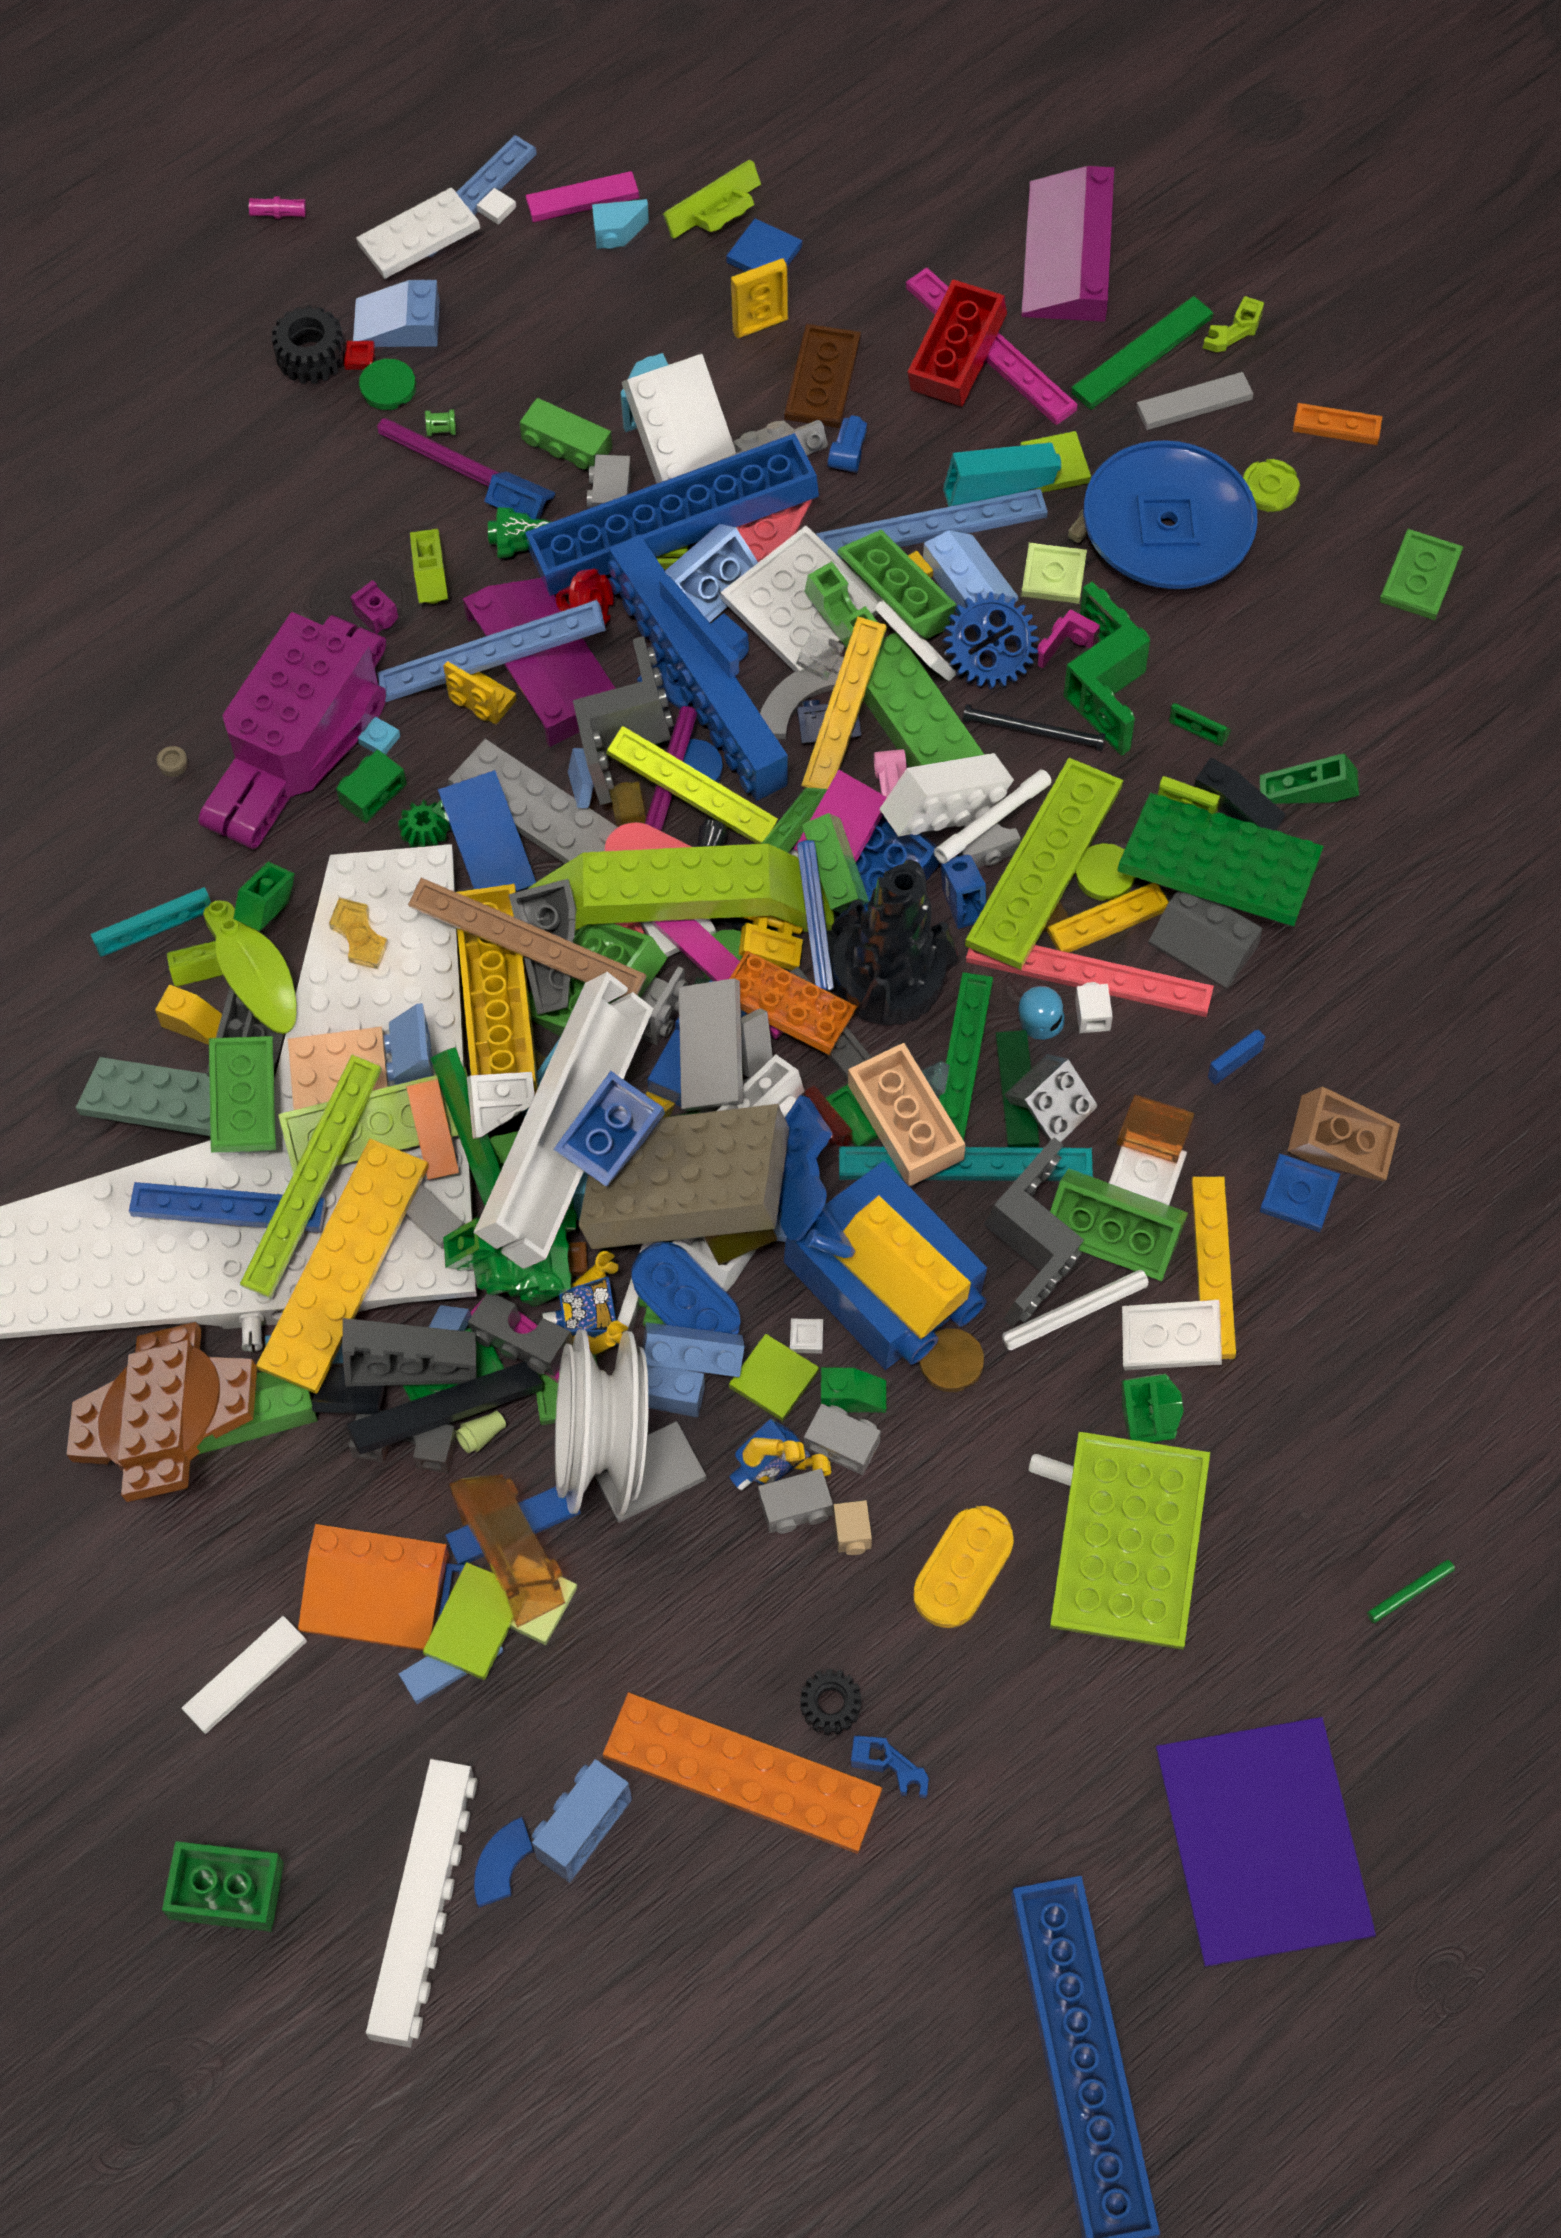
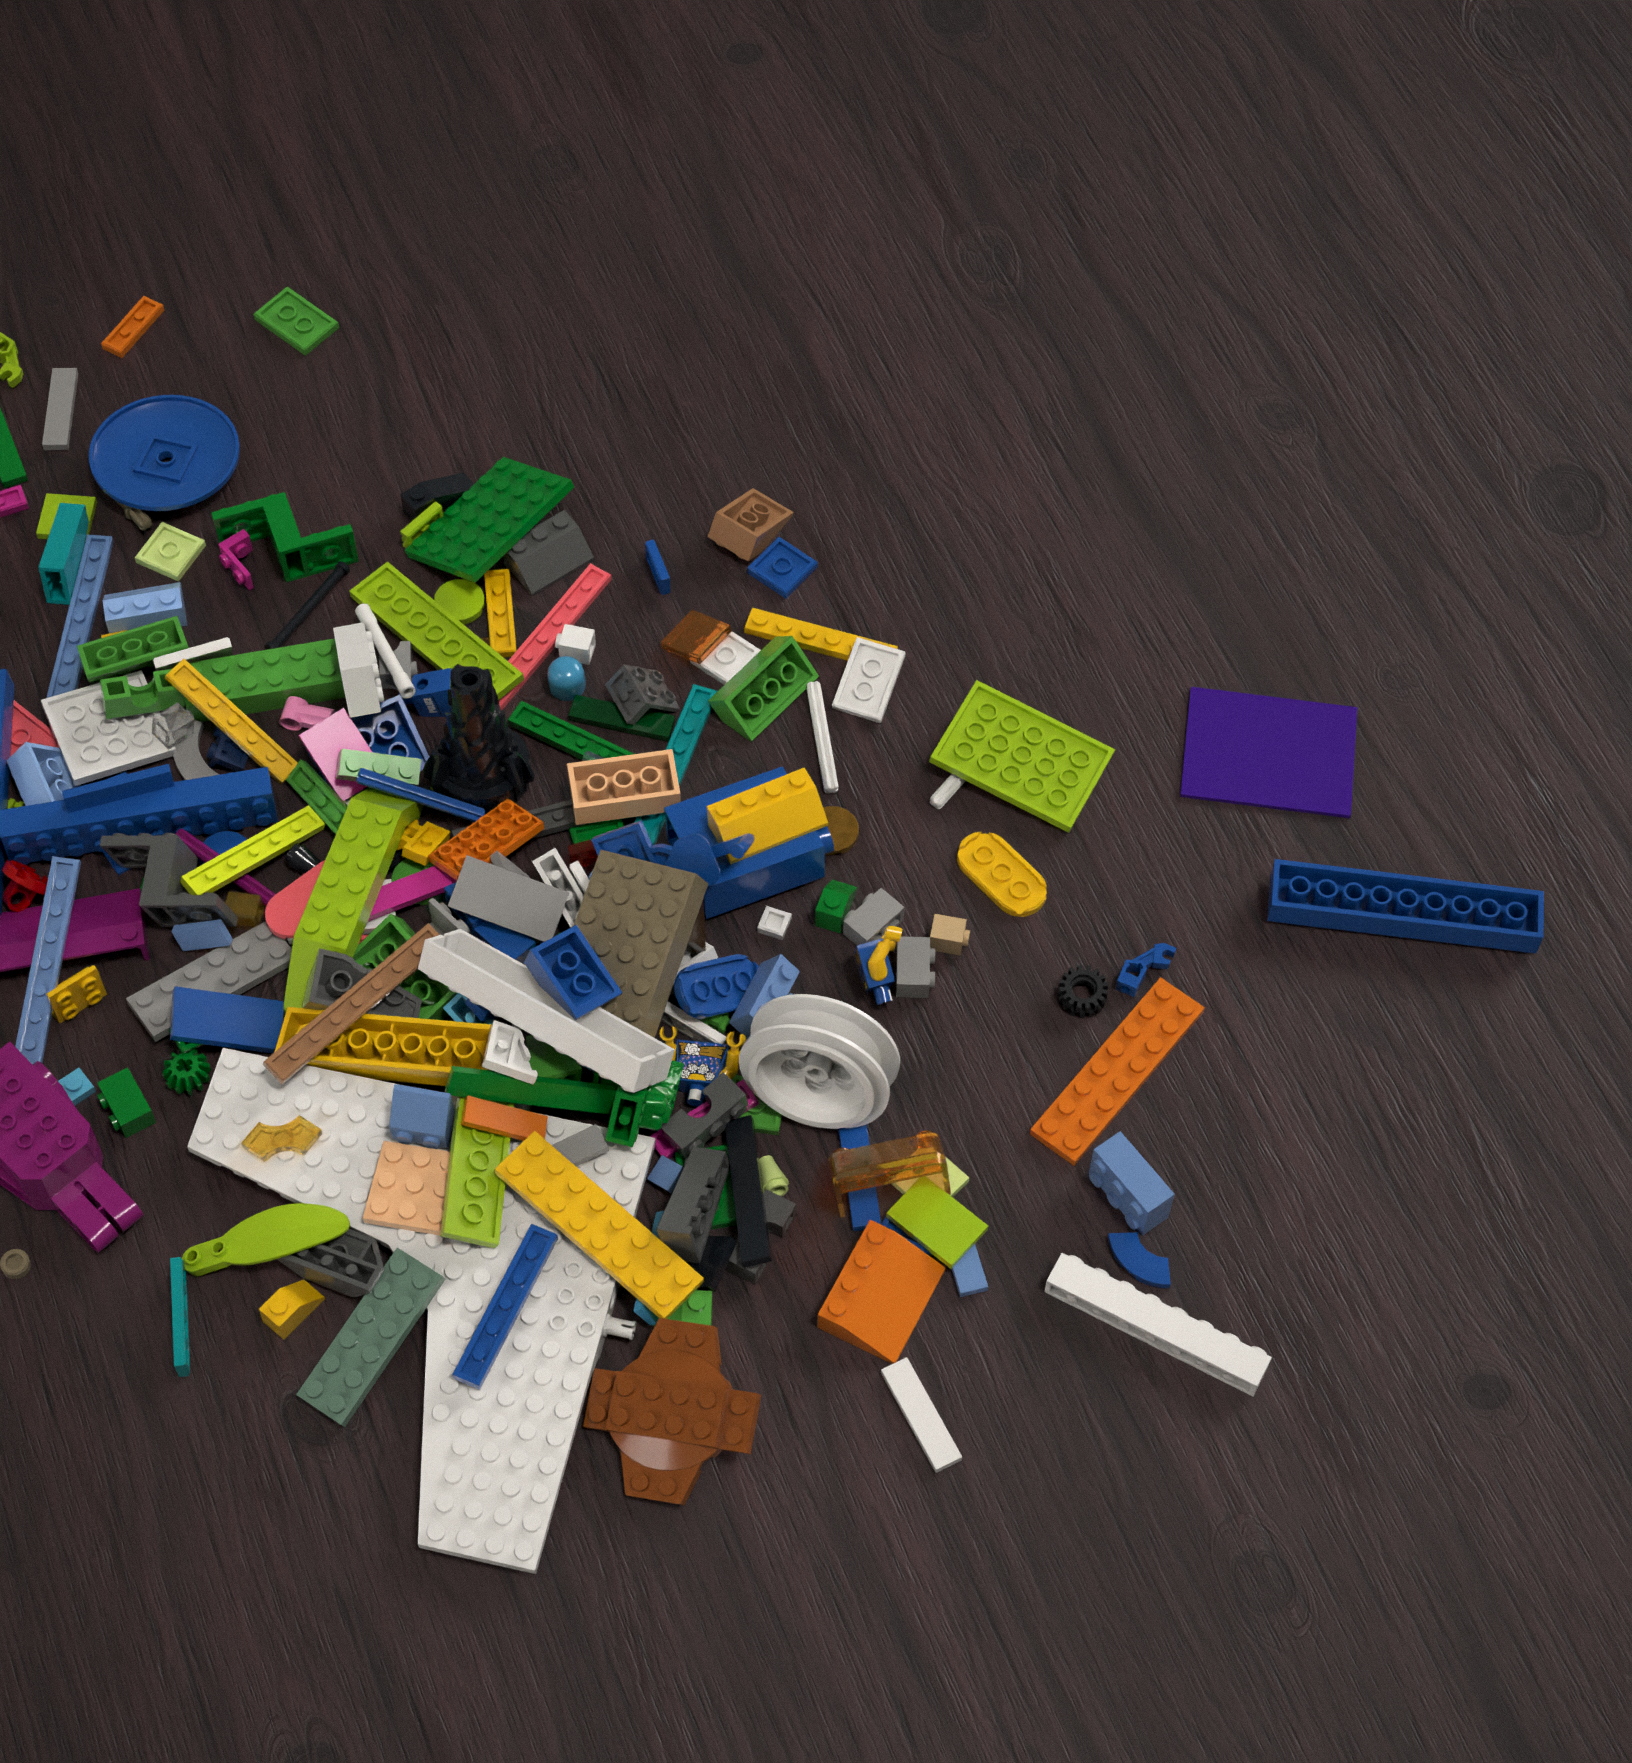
camera: 75 degrees left, 5 degrees down
(193, 964) = (234, 1292): lime slope -> none
(223, 1886) = (1104, 1467): green brick -> none
(242, 1094) = (404, 1264): bright green tile -> none
(263, 896) = (203, 1210): green brick -> none
(310, 1176) = (511, 1223): lime tile -> none
(774, 1377) = (805, 951): lime tile -> none
(977, 618) = (200, 600): blue gear -> none
(1035, 1233) = (756, 734): dark grey bracket -> none
(1151, 1408) = (922, 714): green slope -> none
(1198, 724) = (359, 500): green slope -> none
(1272, 484) = (165, 382): lime tile -> none
(1312, 782) = (447, 443): green slope -> none
(1410, 1591) = (1115, 603): green bar -> none

